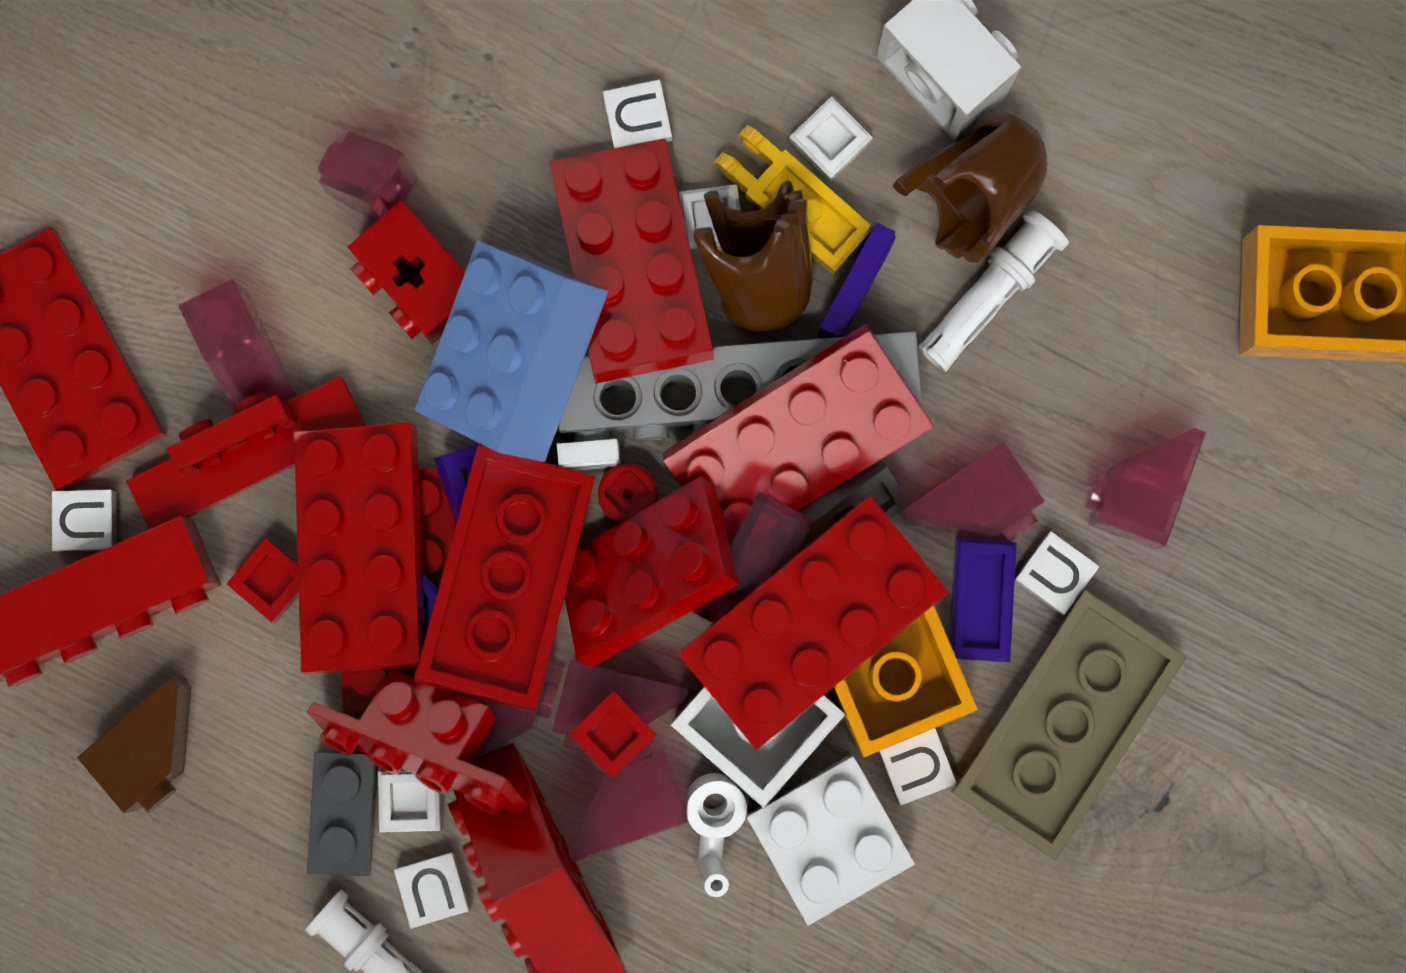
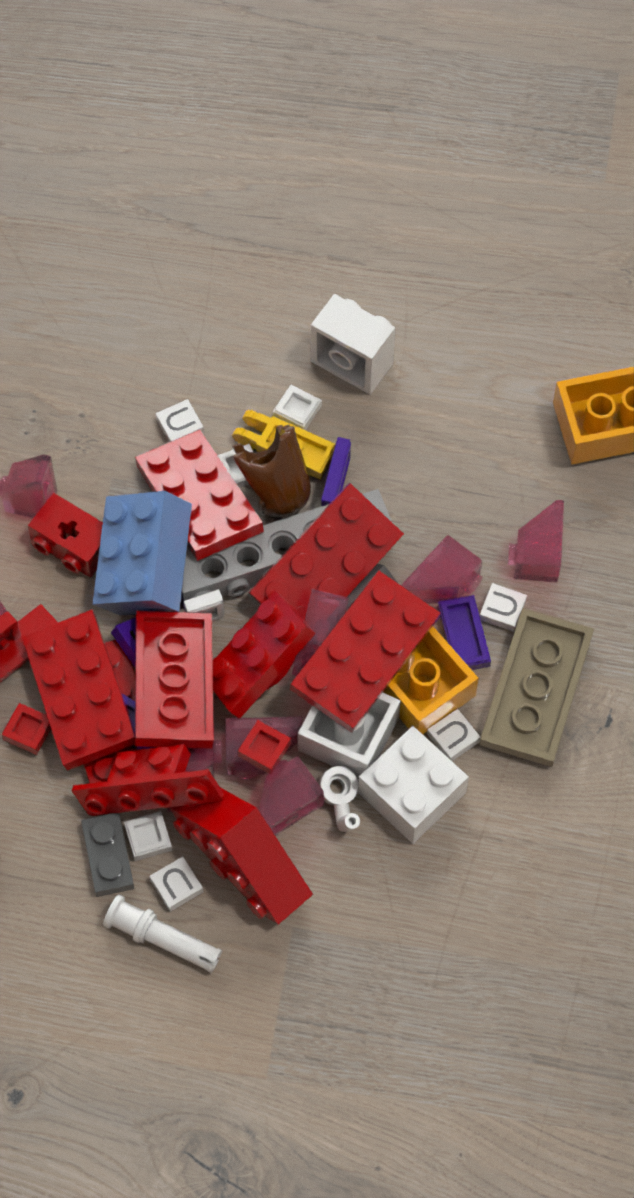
camera: 20 degrees left, 20 degrees down
(626, 491) = (229, 622): red tile -> none
(981, 182) = (391, 404): reddish brown hair -> none
(1009, 270) = (423, 450): white pin -> none

